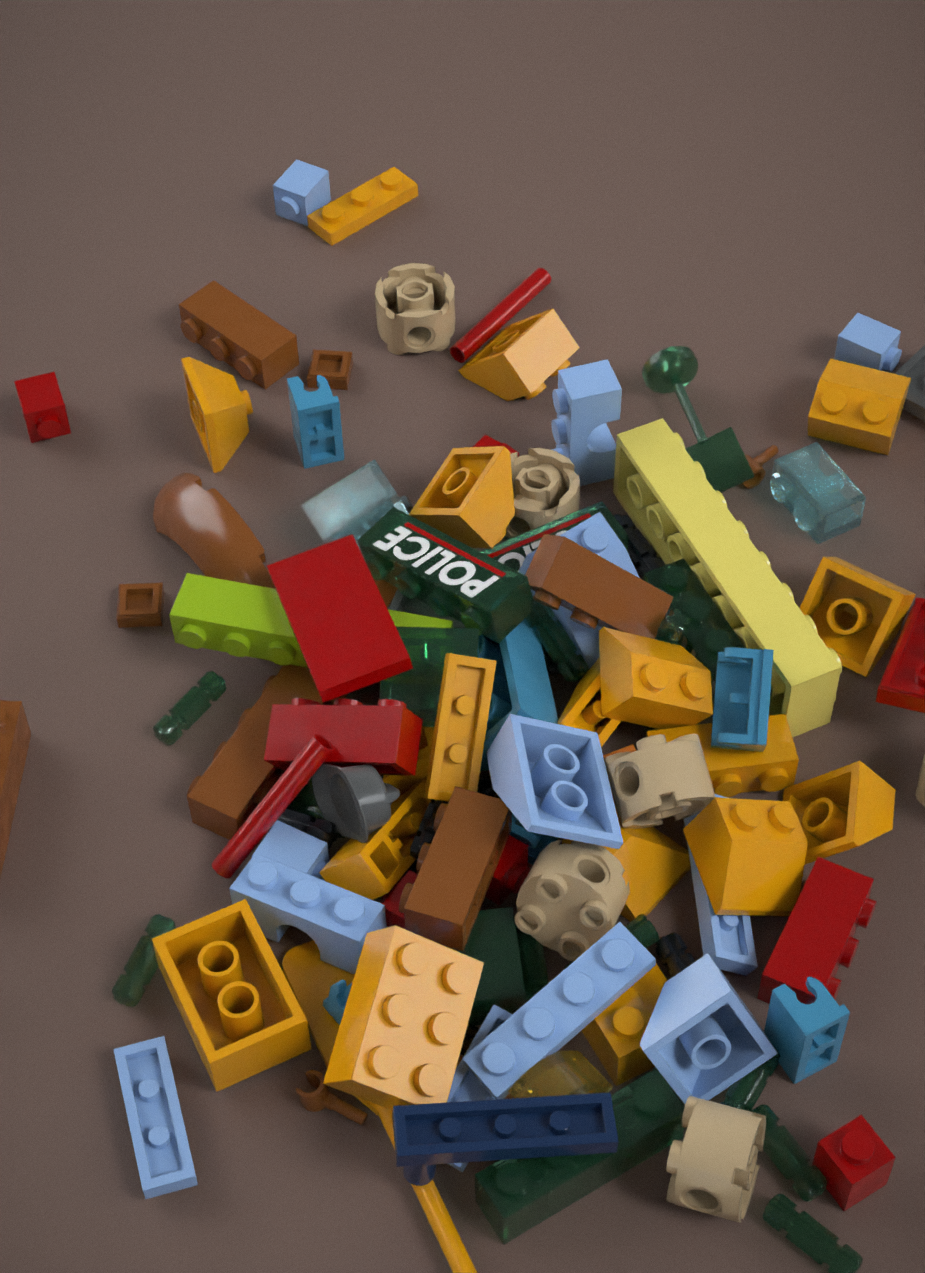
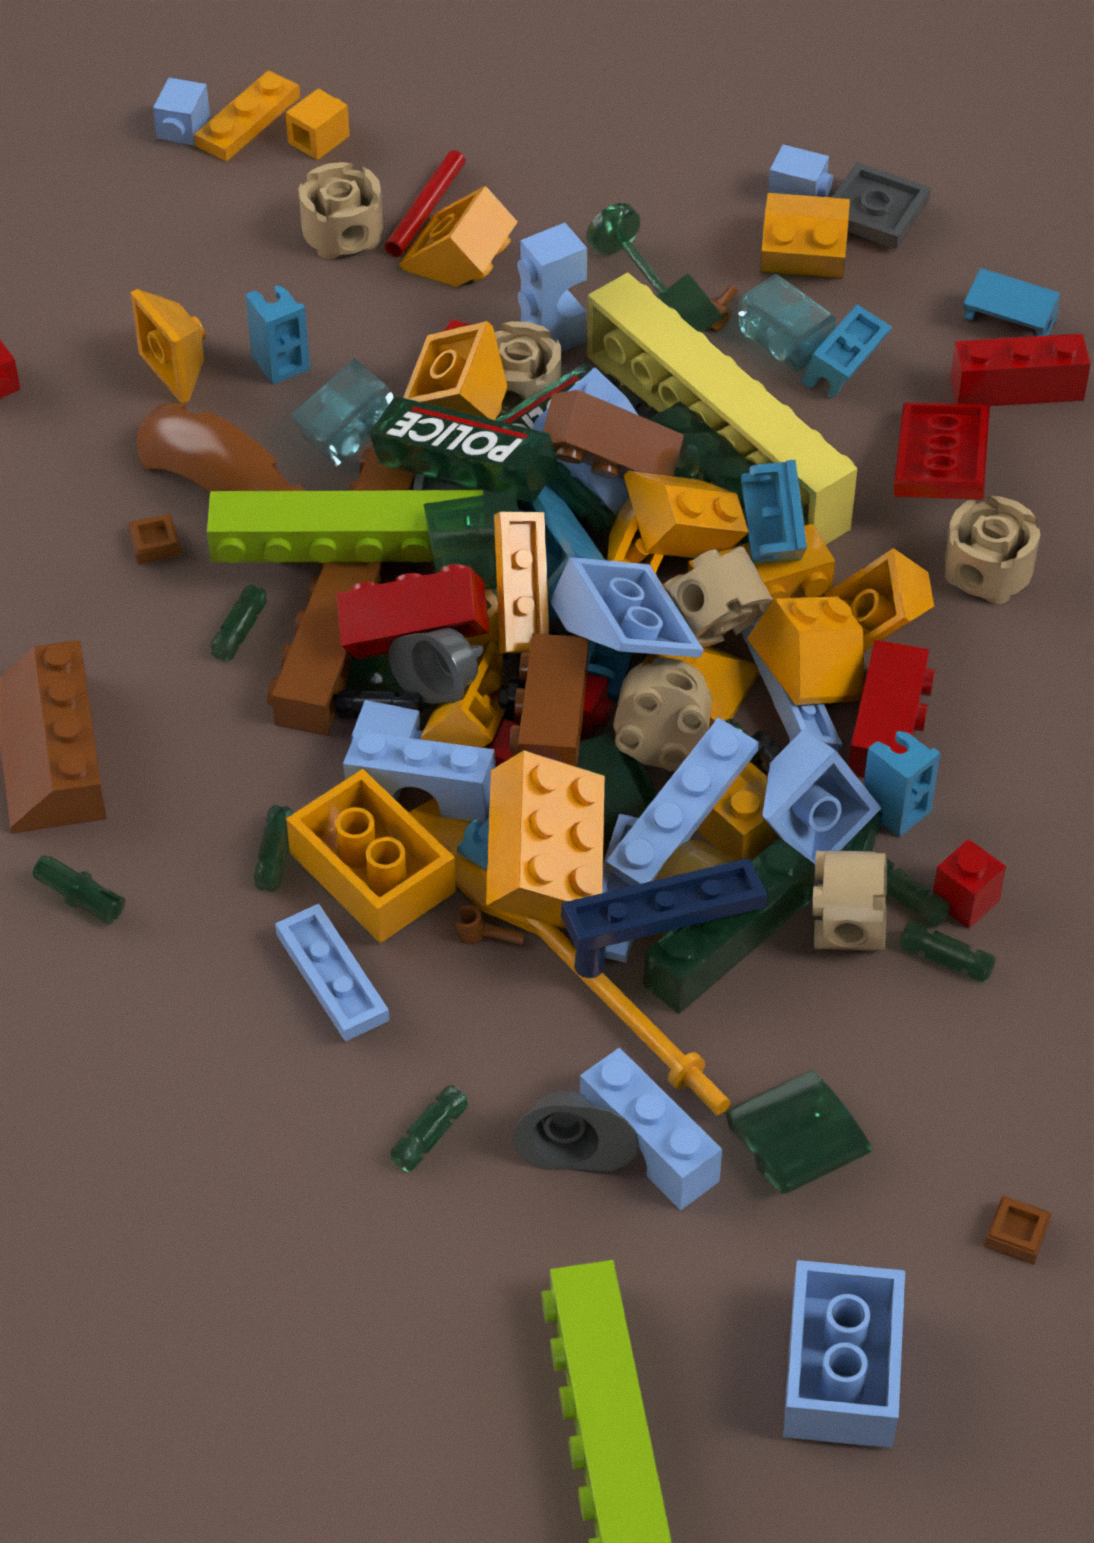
camera: 15 degrees left, 0 degrees up
(239, 334) = (165, 263): dark orange brick -> none
(272, 806) = (360, 686): red piece -> none
(332, 365) = (265, 277): dark orange tile -> none
(339, 618) = (377, 502): red tile -> none
(422, 223) = (317, 124): none -> light orange brick
(855, 612) = (853, 422): light orange slope -> none
(871, 529) = (846, 349): none -> dark azure hinge

